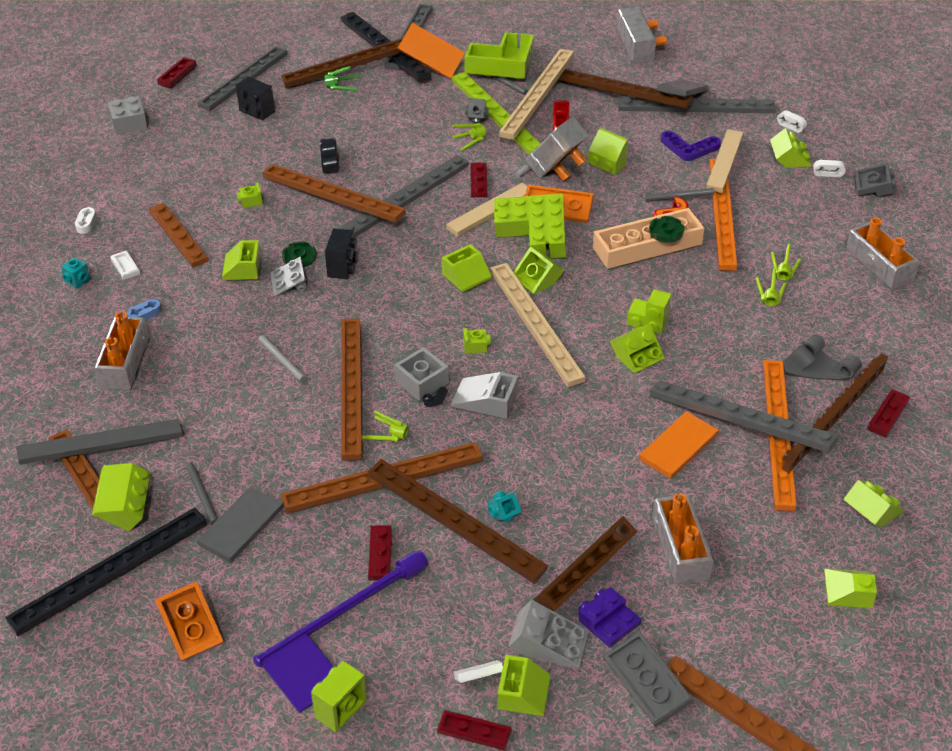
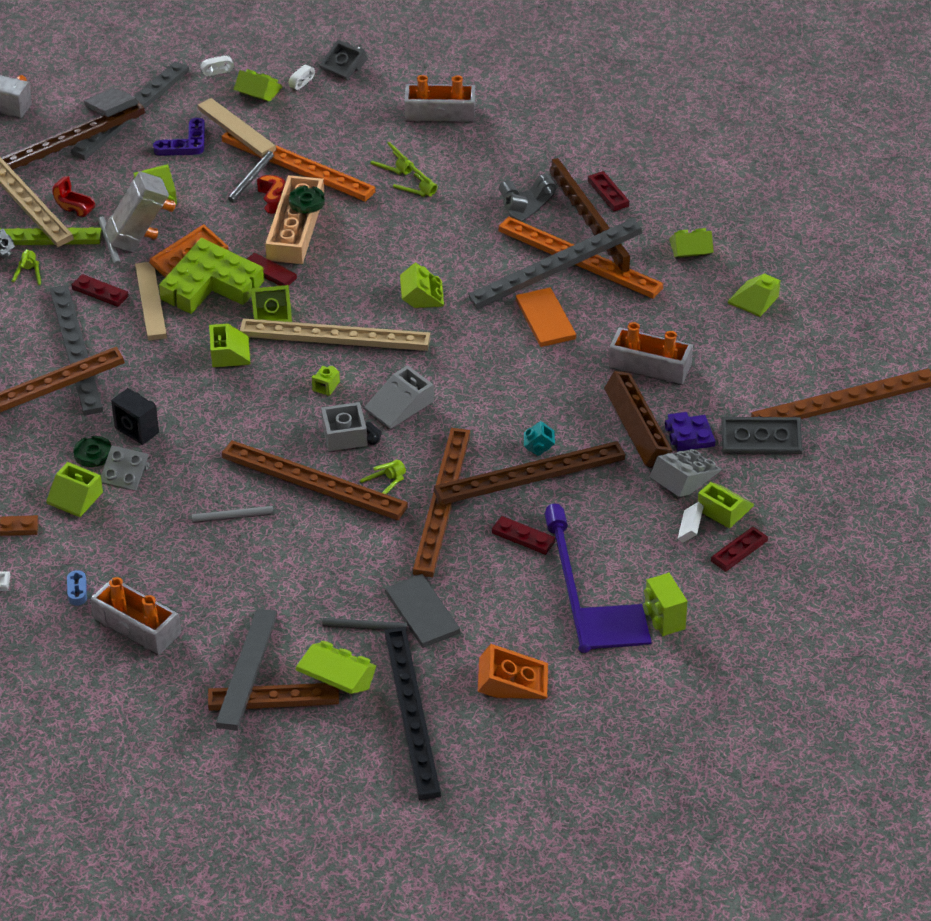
camera: 60 degrees left, 0 degrees up
(582, 254) = (273, 271): none -> dark red tile
(652, 312) = (392, 261): lime brick -> none

